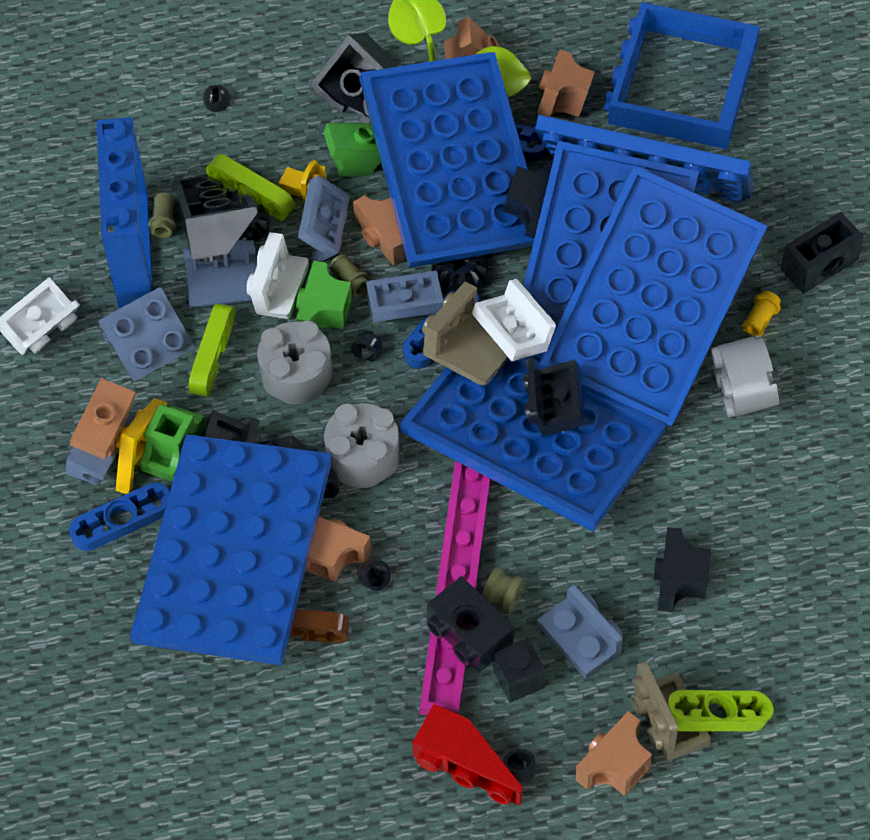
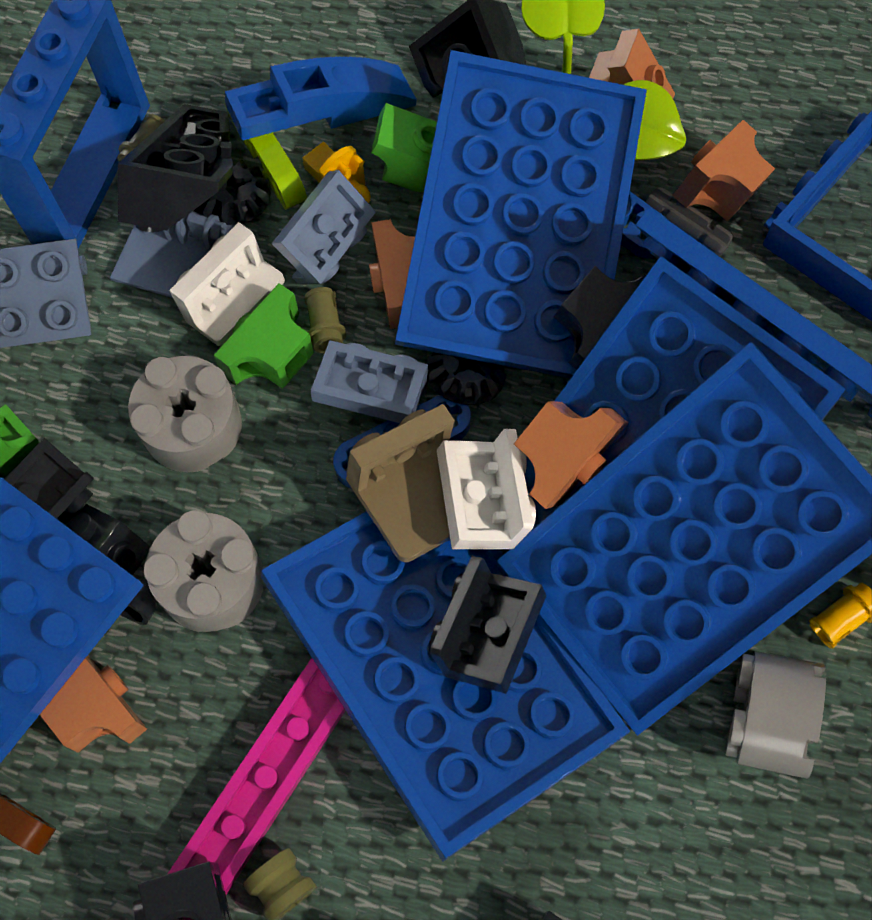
camera: 25 degrees right, 10 degrees up
(212, 343) = (97, 347): lime beam -> none
(223, 98) = (298, 19): black hinge -> none
(271, 133) = (316, 89): none -> blue slope
(372, 341) = (294, 421): black hinge -> none
(378, 569) = (112, 777): black hinge -> none
(553, 275) = (566, 448): none -> nougat brick

